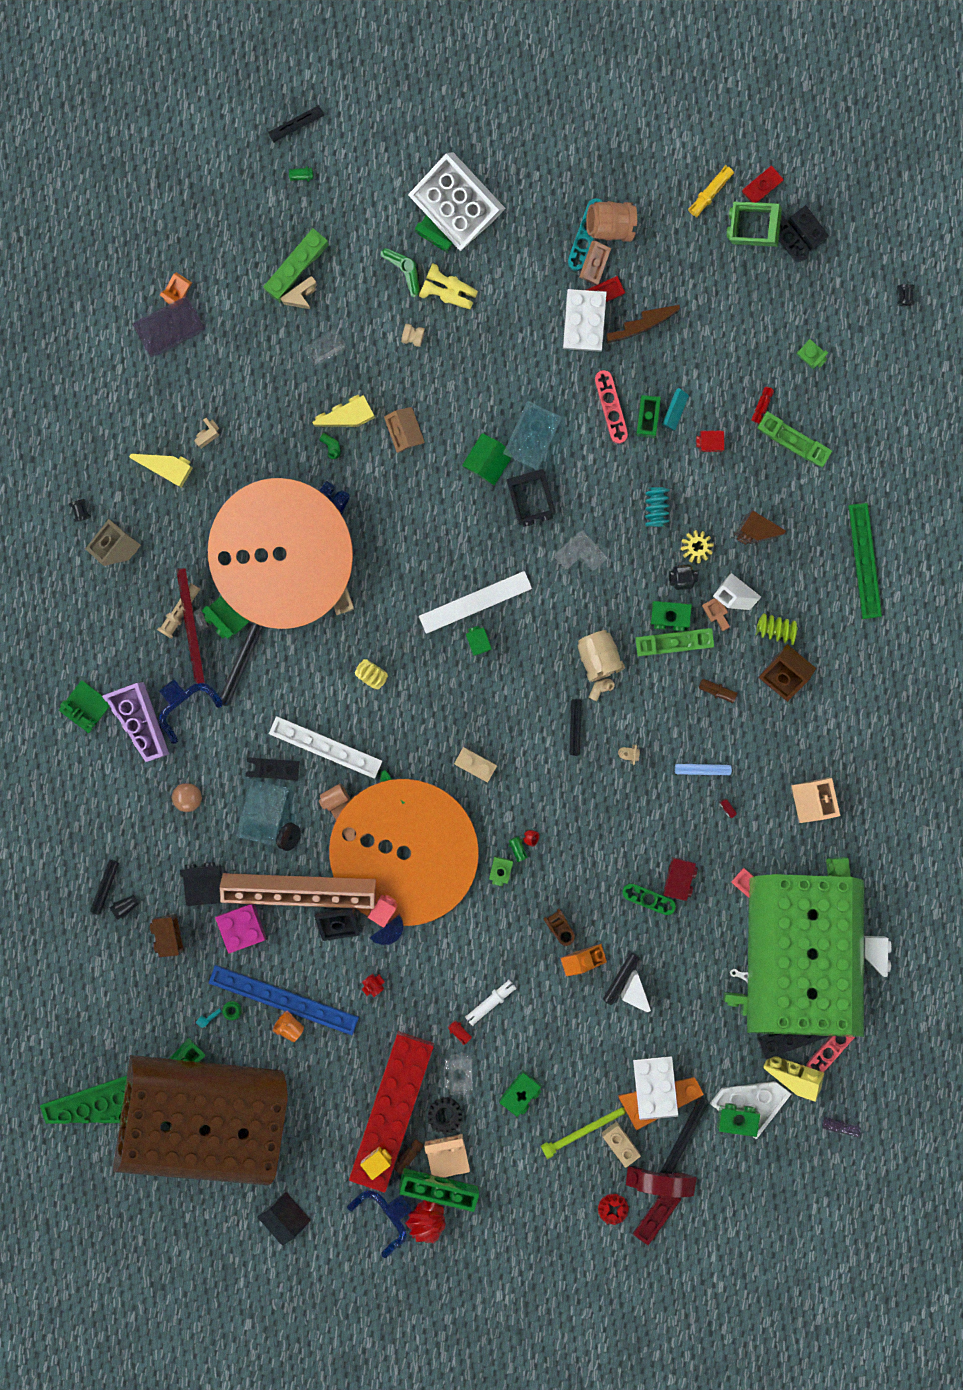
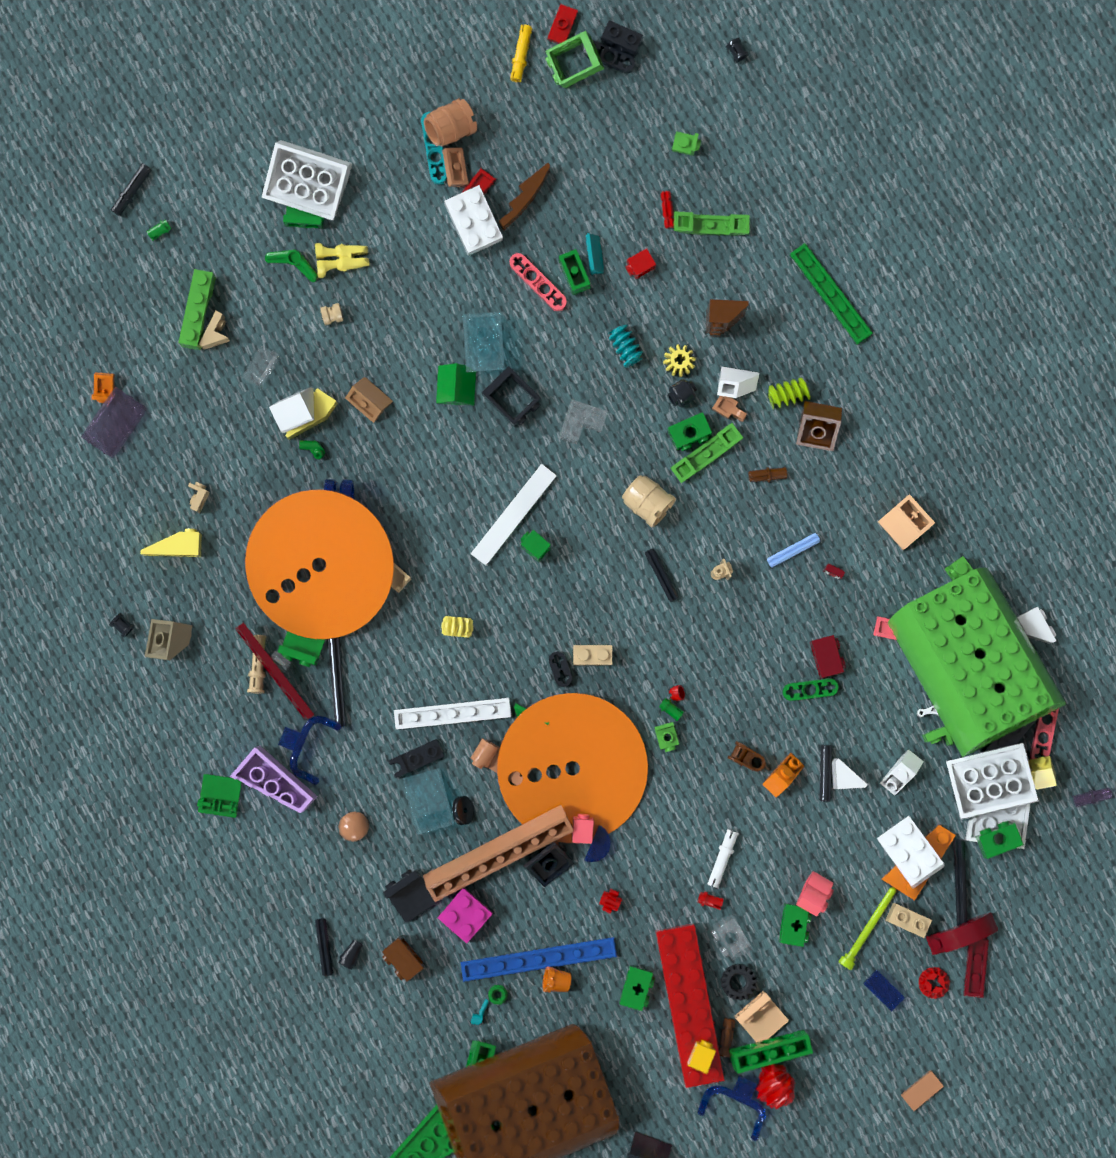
camera: 30 degrees left, 5 degrees down
(332, 403) = (294, 410): none -> white slope
(356, 1061) = (629, 997): none -> green brick
(436, 758) = (555, 670): none -> black beam
(550, 1294) = (922, 1090): none -> nougat tile
(553, 1077) = (815, 893): none -> coral brick
(566, 1191) = (883, 990): none -> clear blue plate
(601, 686) = (663, 527): tan arm -> none
(688, 1015) = (902, 772): none -> white slope
(760, 1067) = (992, 781): none -> white slope

